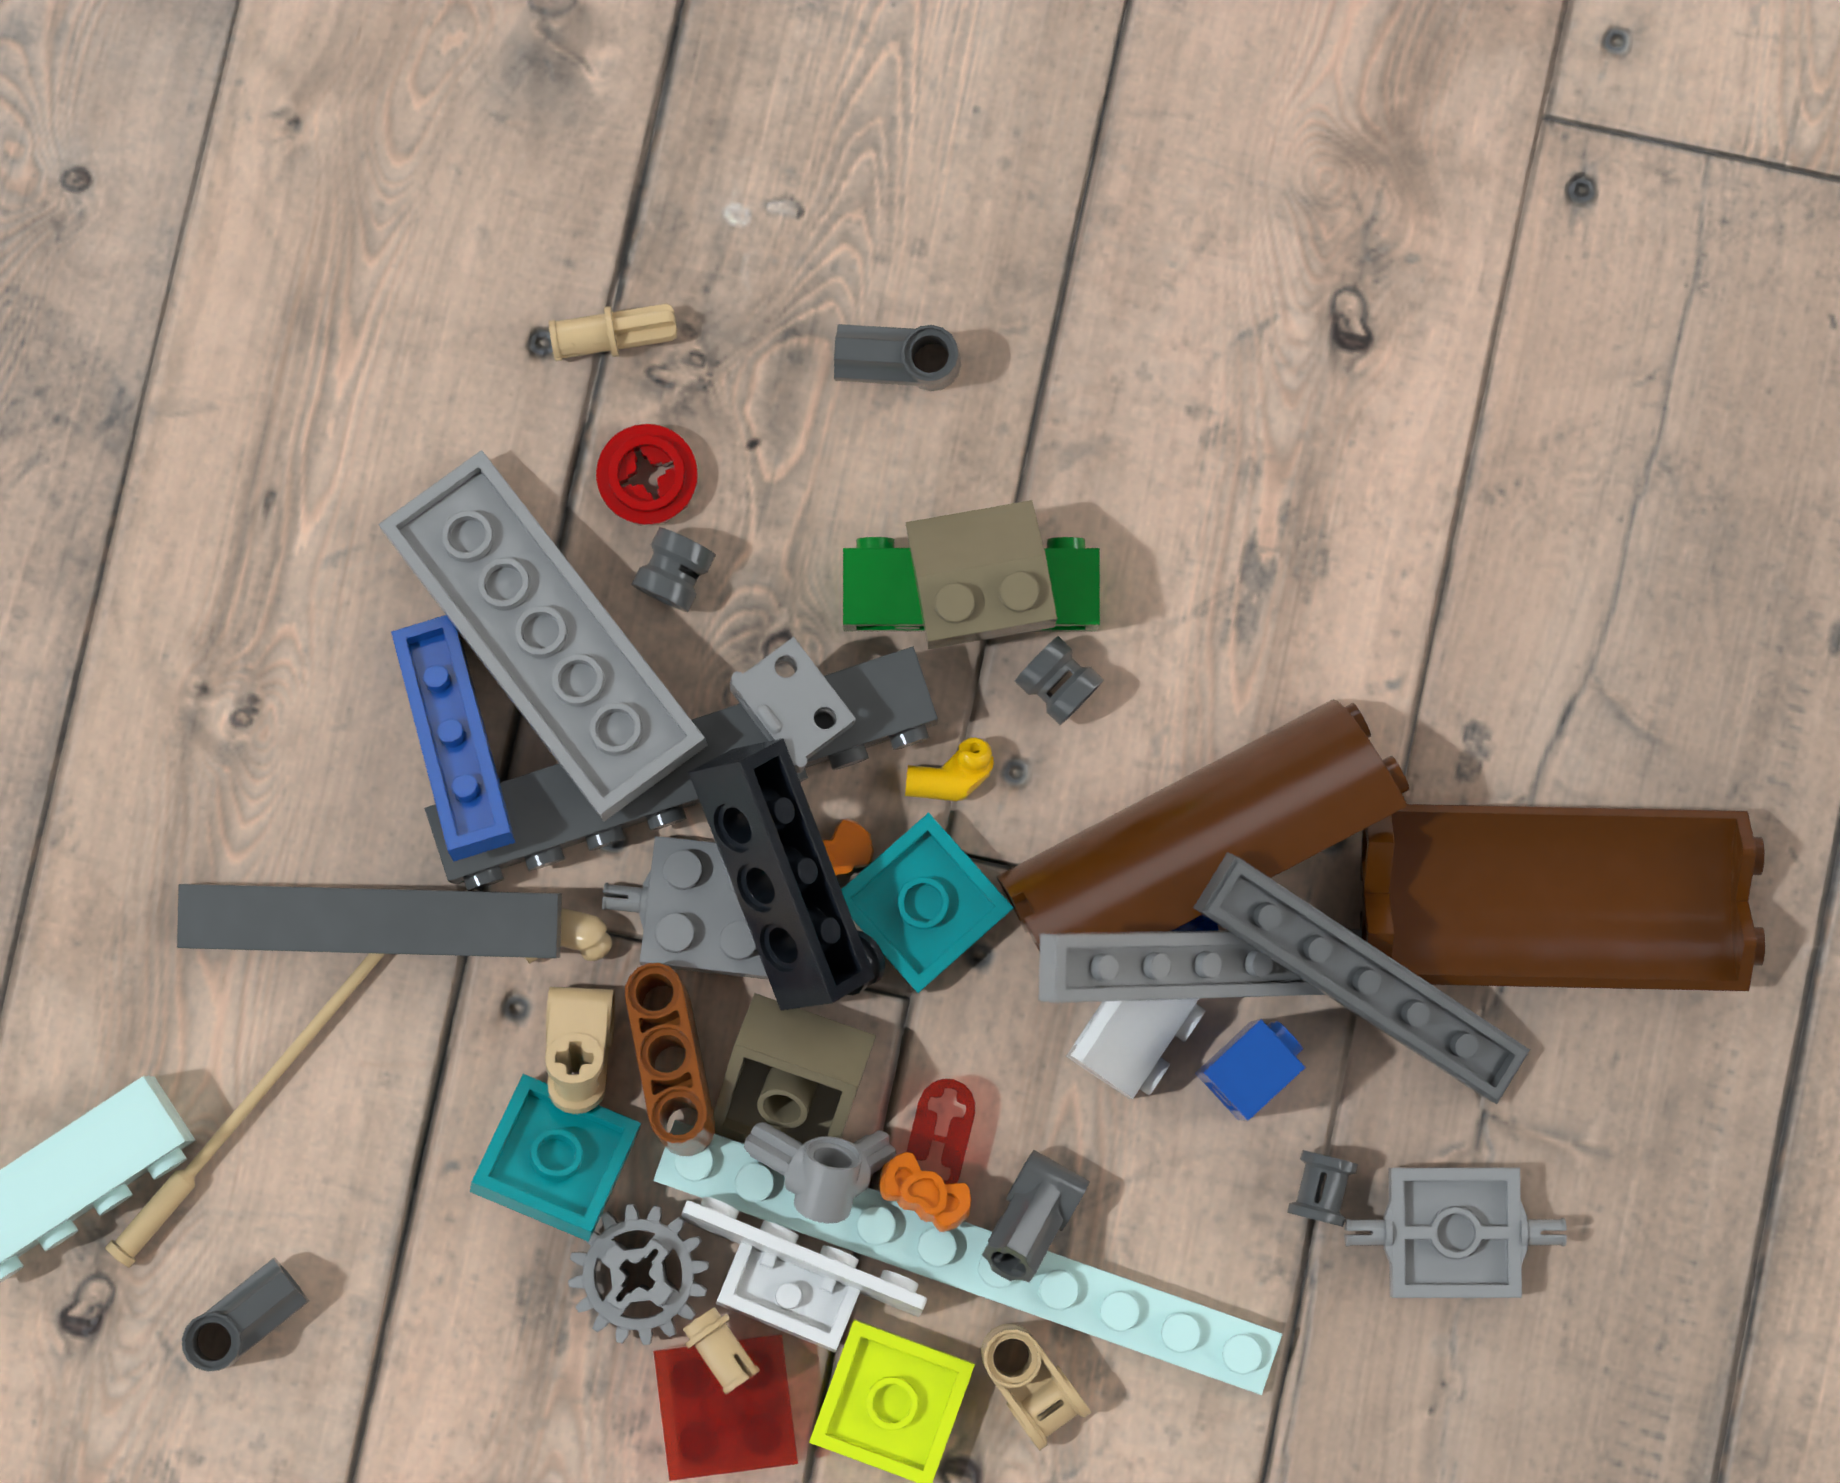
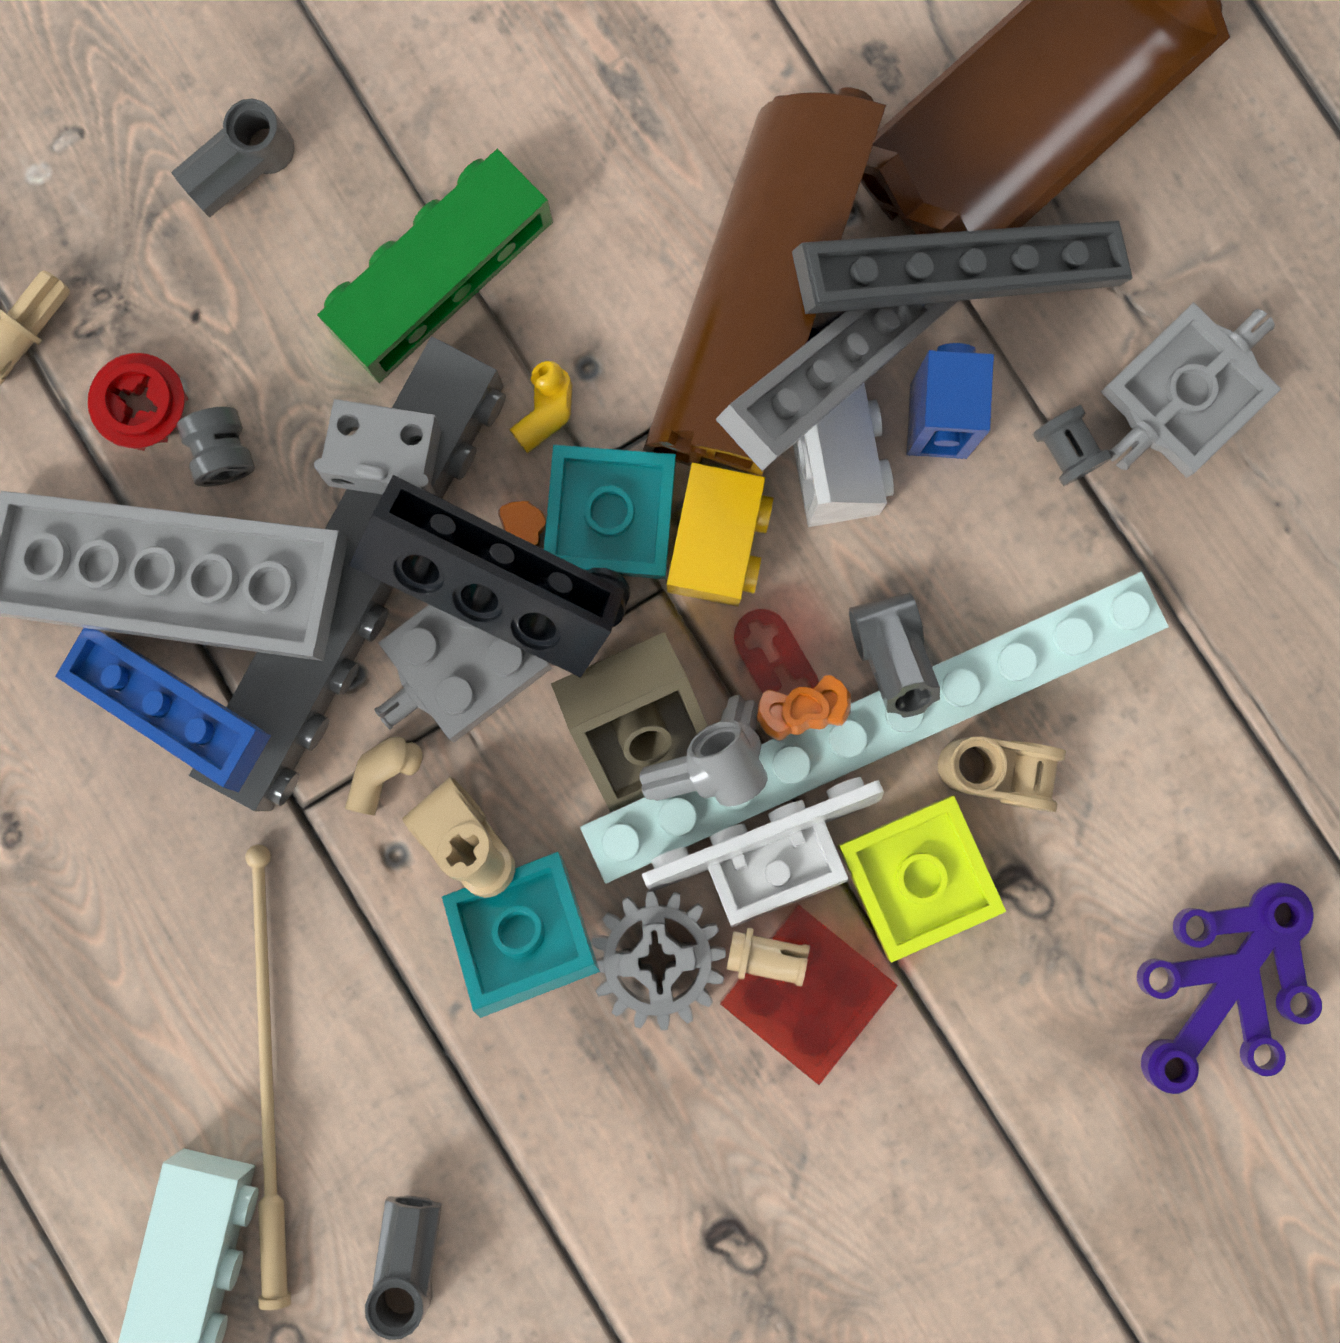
camera: 35 degrees left, 0 degrees up
(369, 920) = (228, 893): dark grey tile -> none
(651, 1035) = (509, 773): dark orange beam -> none
(981, 574) = (434, 237): dark tan slope -> none
(984, 1001) = (717, 535): none -> yellow brick
(1048, 670) = (543, 271): dark grey wheel -> none

